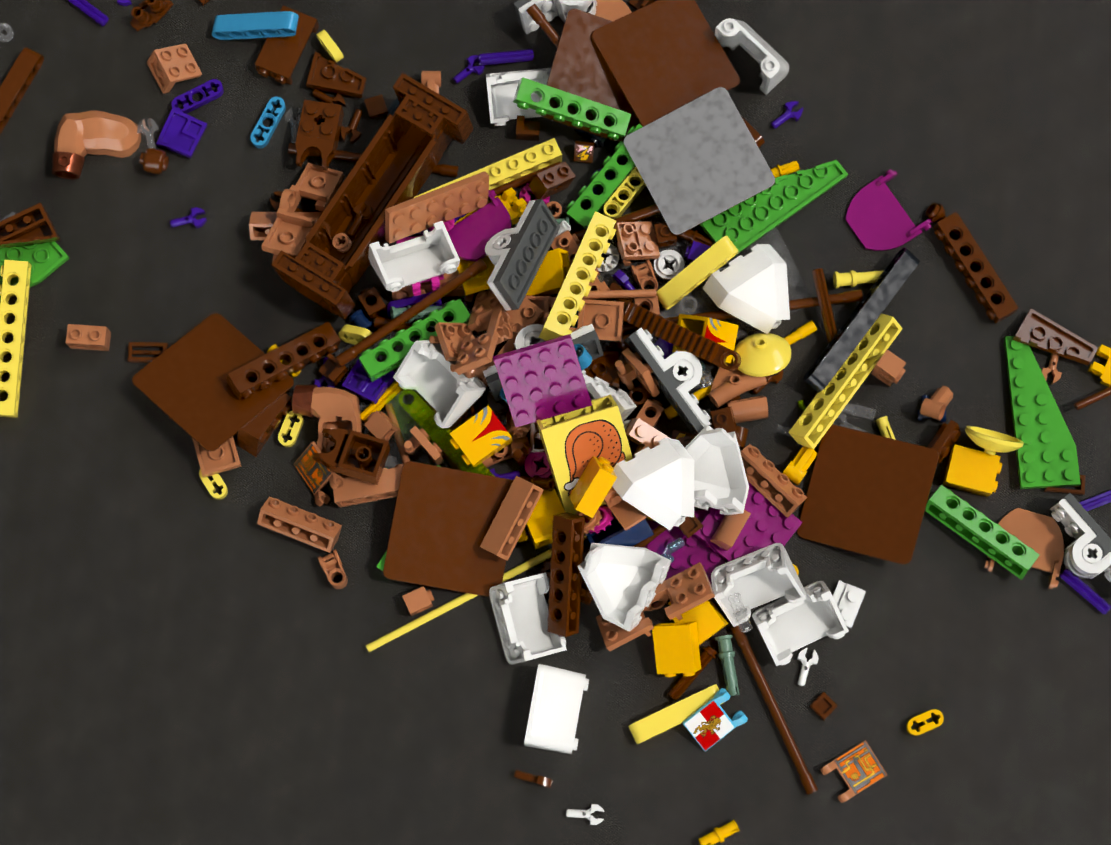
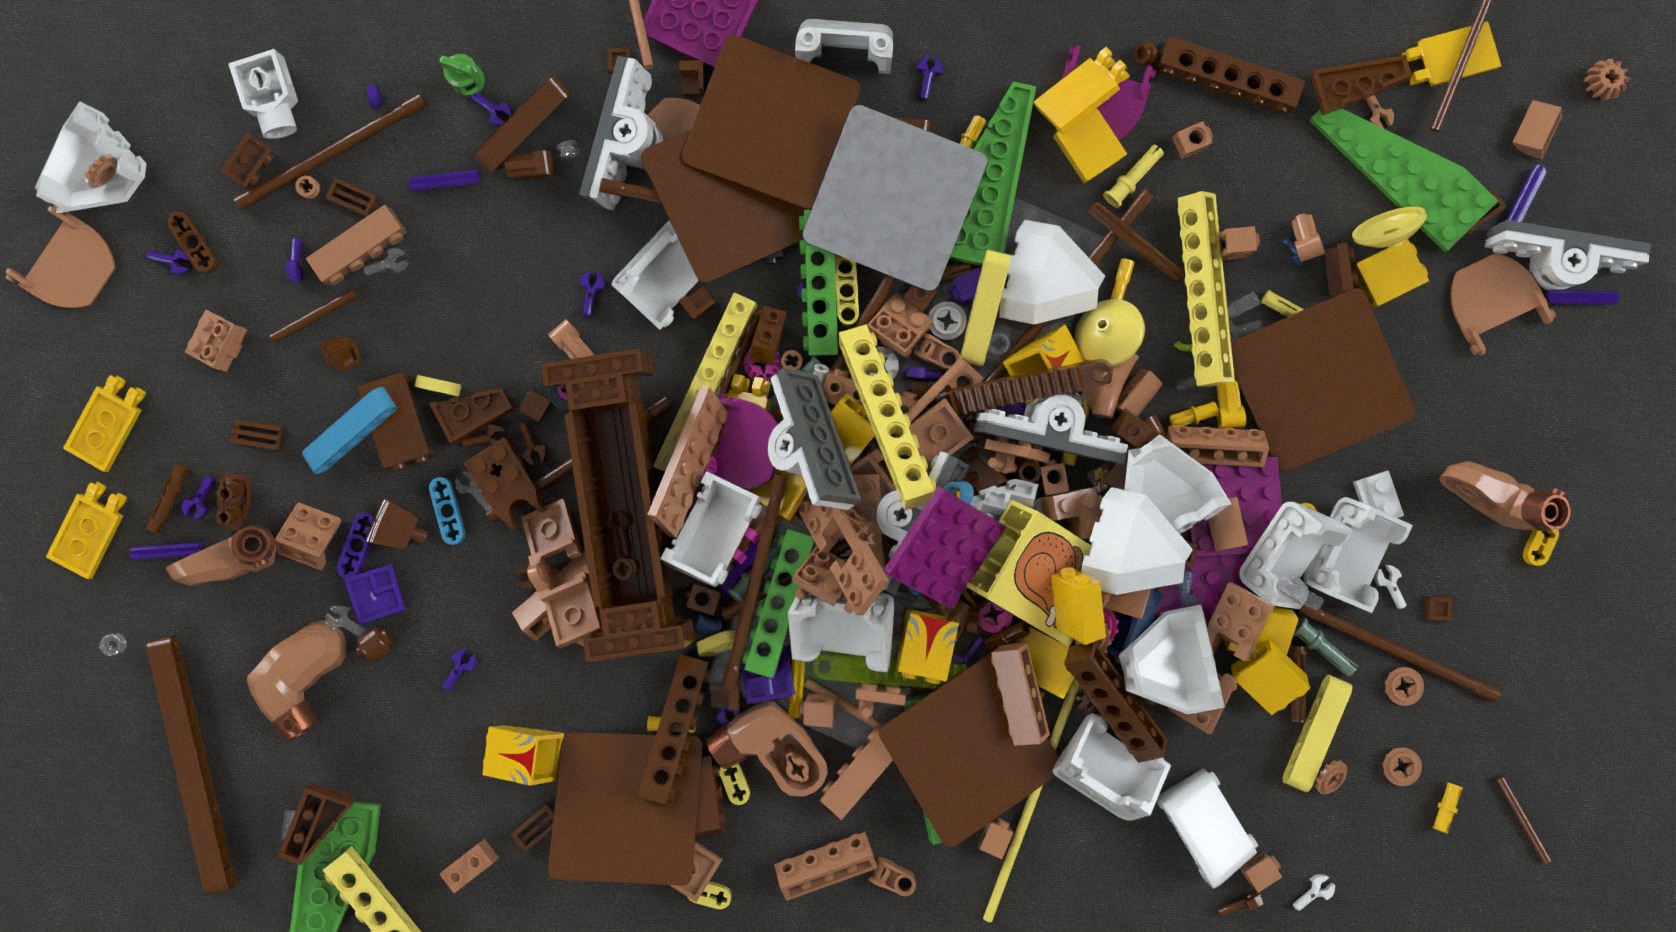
camera: 40 degrees left, 10 degrees up
(116, 38) = (242, 553): none -> nougat piece
(181, 300) = (522, 754): none -> yellow slope
(229, 103) = (394, 526): none -> reddish brown torso
(316, 474) = (800, 804): flag -> none
(348, 452) = (816, 769): reddish brown brick -> none
(506, 57) = (615, 250): dark purple axle -> none
(565, 768) = (1261, 871): none -> nougat brick
(582, 105) = (781, 222): bright green brick -> none
(583, 151) = (770, 279): tile -> none
(655, 753) = (1331, 777): none -> nougat gear
(711, 722) = (1357, 710): flag -> none
(721, 779) = (1411, 770): none -> nougat gear
(749, 737) = (1413, 691): none -> nougat gear
(773, 452) = (1194, 414): none -> yellow axle
(850, 235) = (1090, 146): none -> yellow brick
(857, 768) = (1518, 639): flag -> none
(861, 320) = (1172, 218): black beam -> none
(873, 198) = (1082, 91): none -> yellow tile
(911, 291) = (1185, 146): none -> nougat brick
(921, 662) = (1505, 499): none -> nougat piece
(981, 532) = (1513, 326): bright green brick -> none

